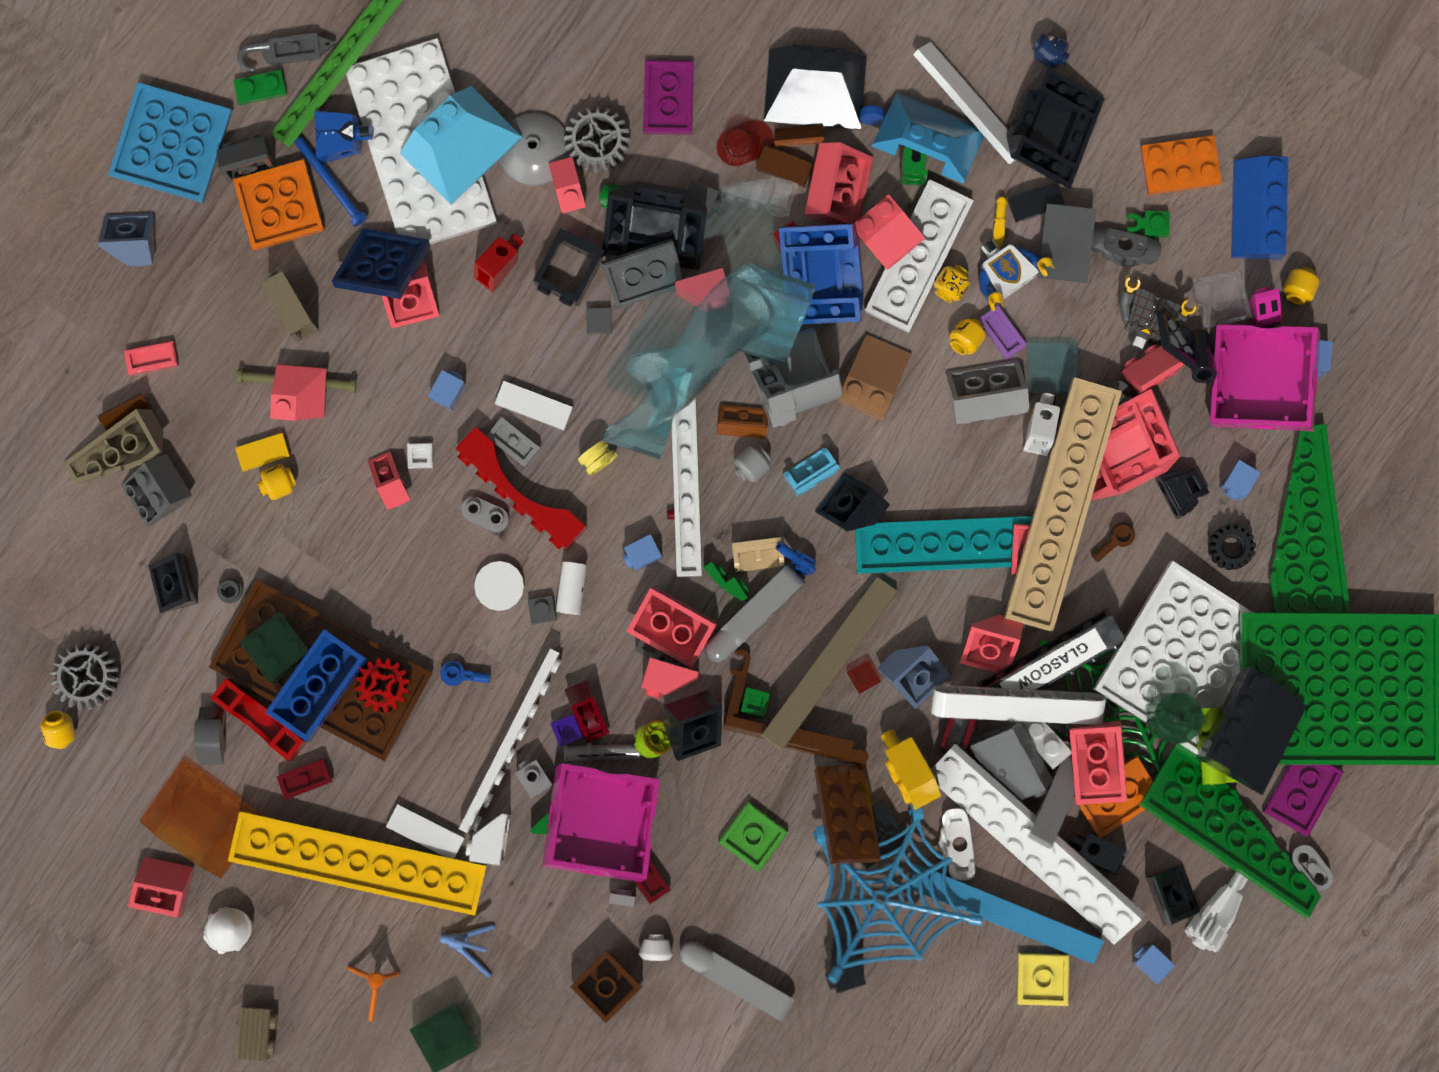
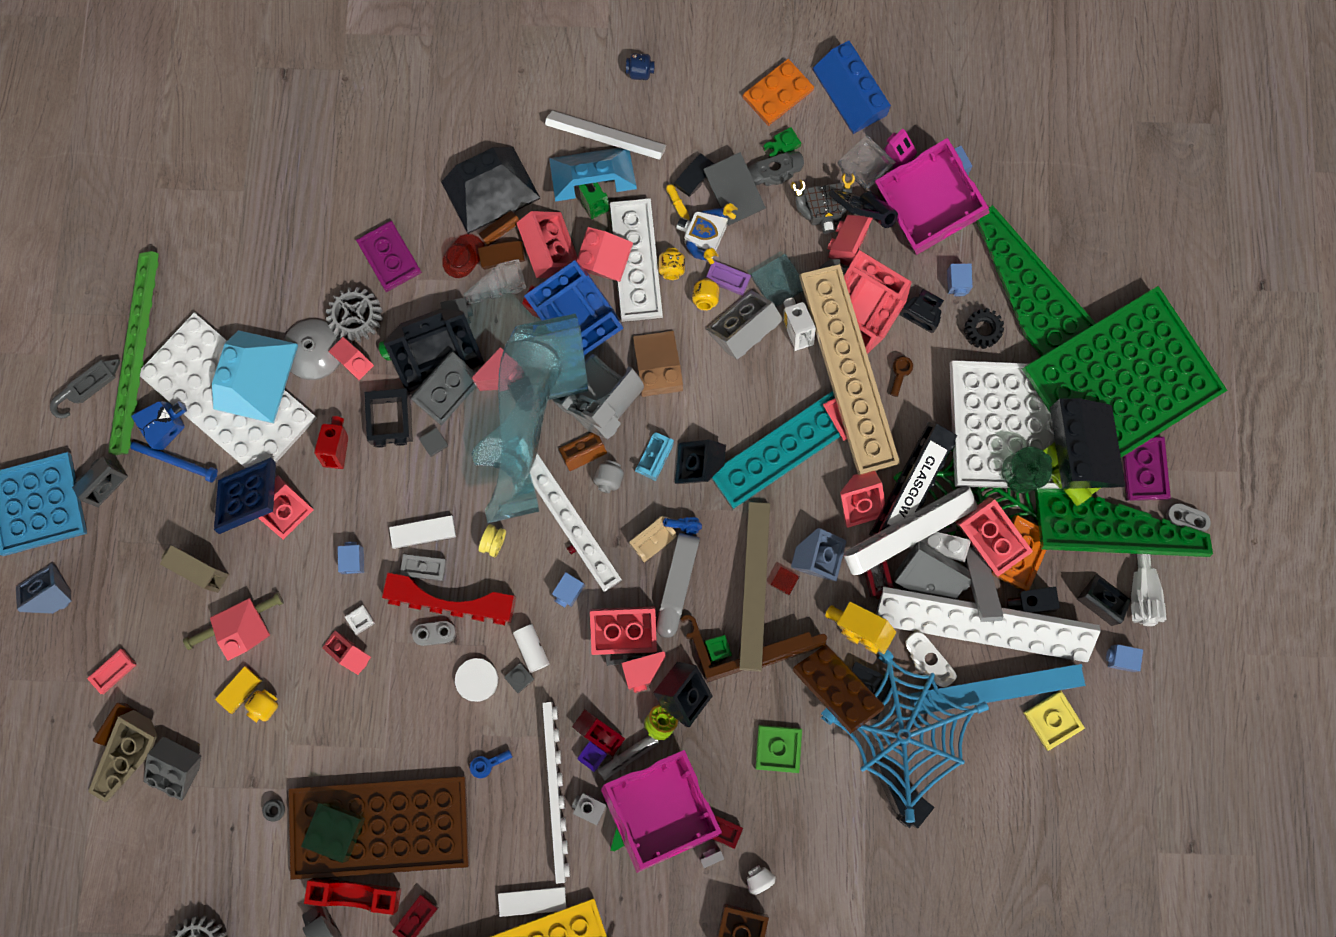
camera: 35 degrees left, 5 degrees down
(173, 583) = (226, 831): black slope -> none
(260, 87) = (81, 424): green plate -> none
(278, 205) = (144, 500): orange plate -> none
(316, 686) = (381, 843): blue slope -> none
(389, 696) = (423, 805): red gear -> none
(490, 842) = (586, 879): white slope -> none
(732, 587) = (649, 574): green slope -> none
(736, 980) = (834, 865): light grey piece -> none
(872, 115) = (542, 183): blue tile -> none
(1053, 126) = (673, 115): black slope -> none
(1301, 285) = (914, 122): yellow head -> none

